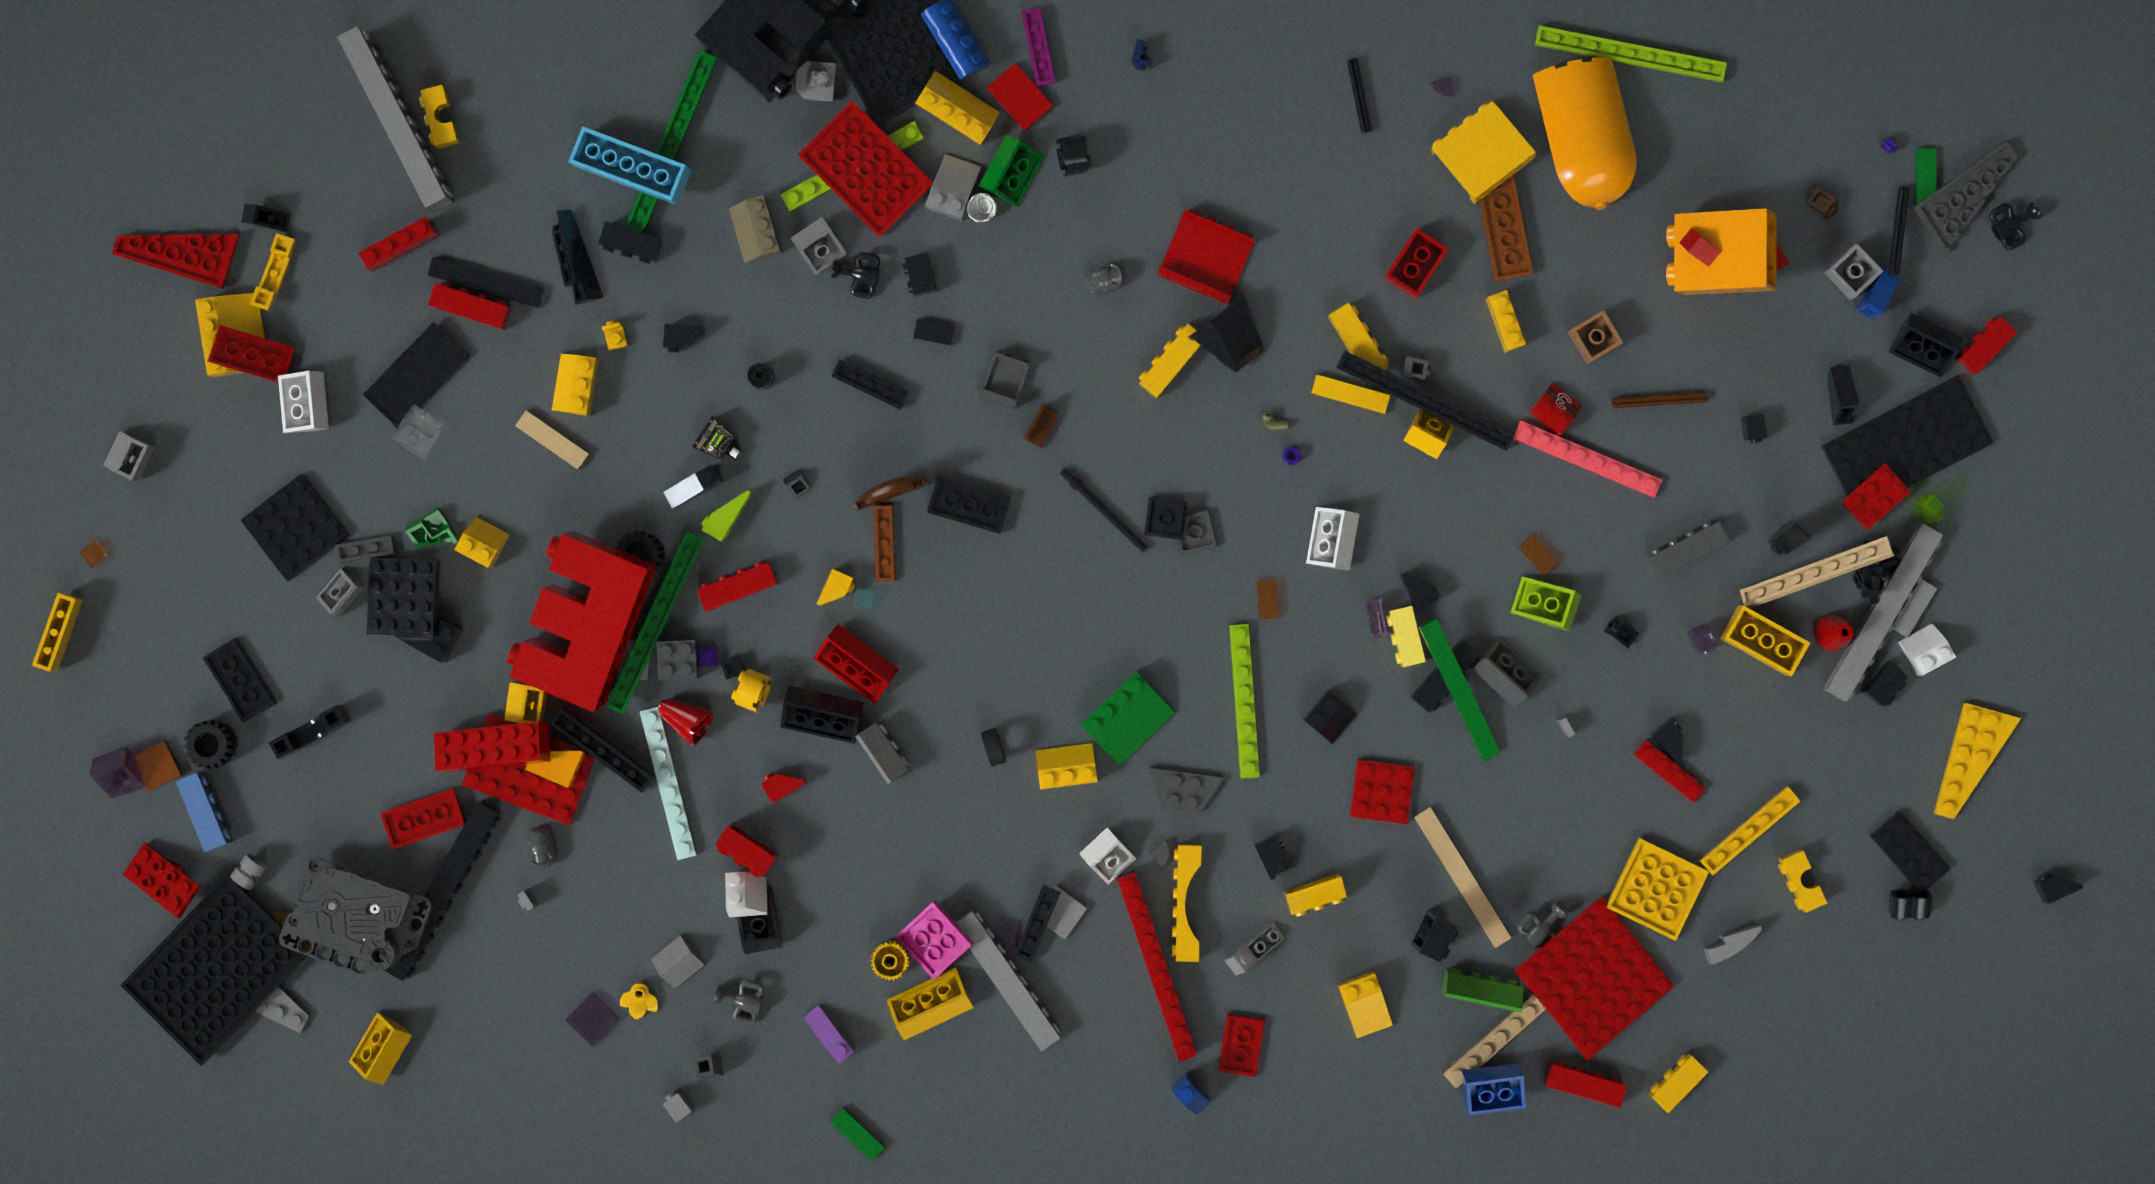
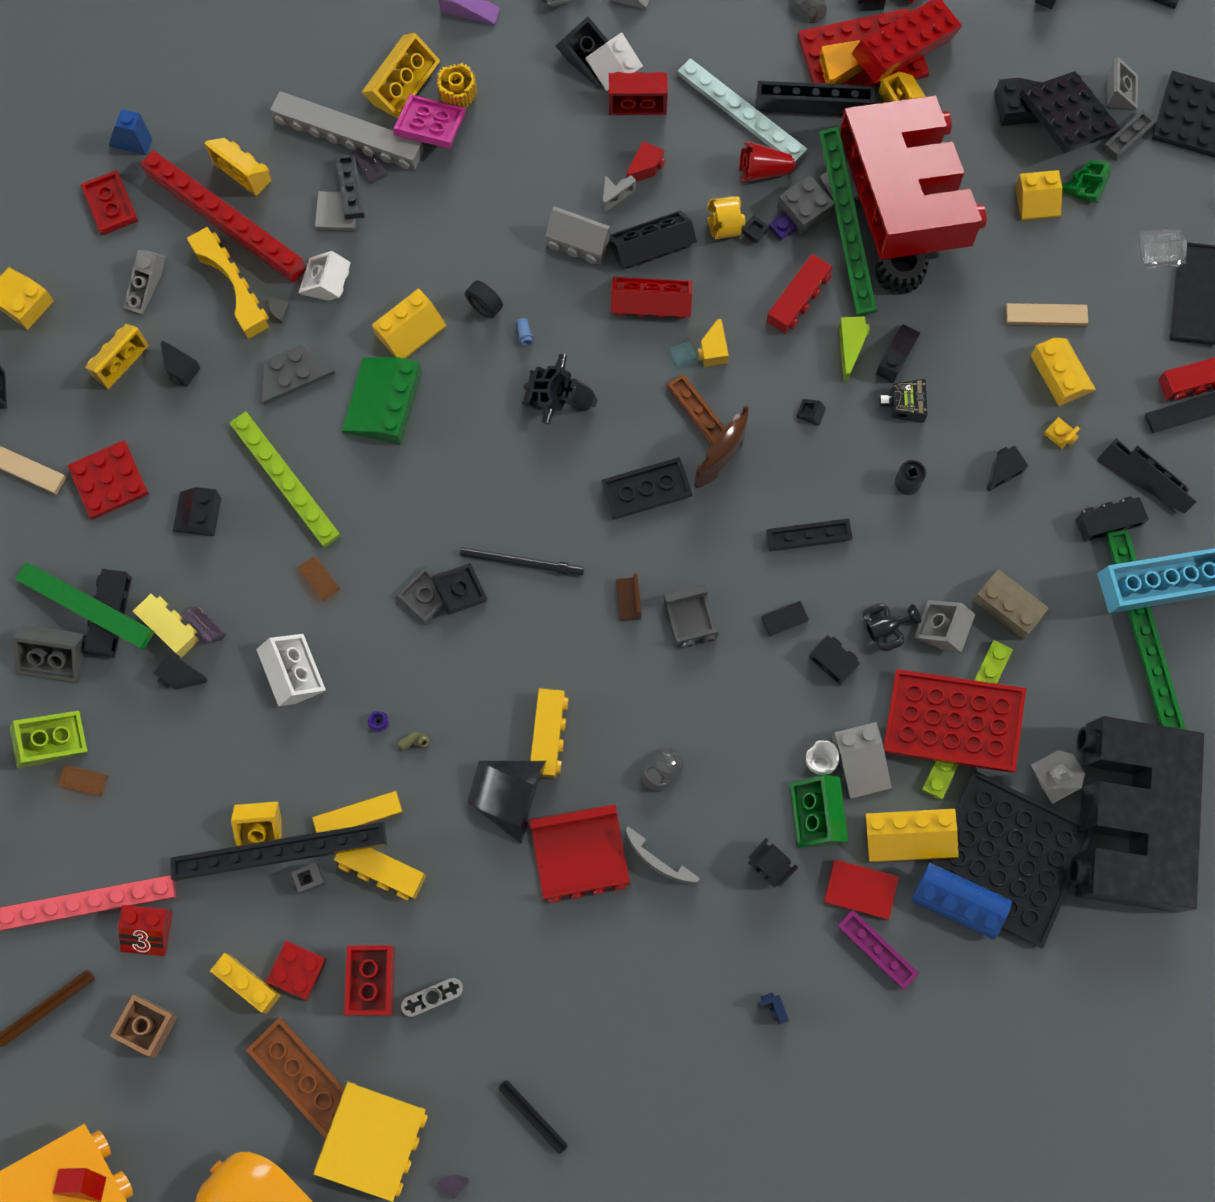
camera: 145 degrees right, 15 degrees down
(828, 776) = (615, 194): none -> light grey slope
(978, 700) = (525, 336): none -> medium blue pin
(989, 629) = (554, 388): none -> black piece
(1114, 1005) = (238, 165): none -> yellow slope
(1142, 191) = (683, 874): none -> light grey slope
(1391, 232) = (414, 998): none -> light grey beam
(1463, 308) = (296, 970): none -> red plate

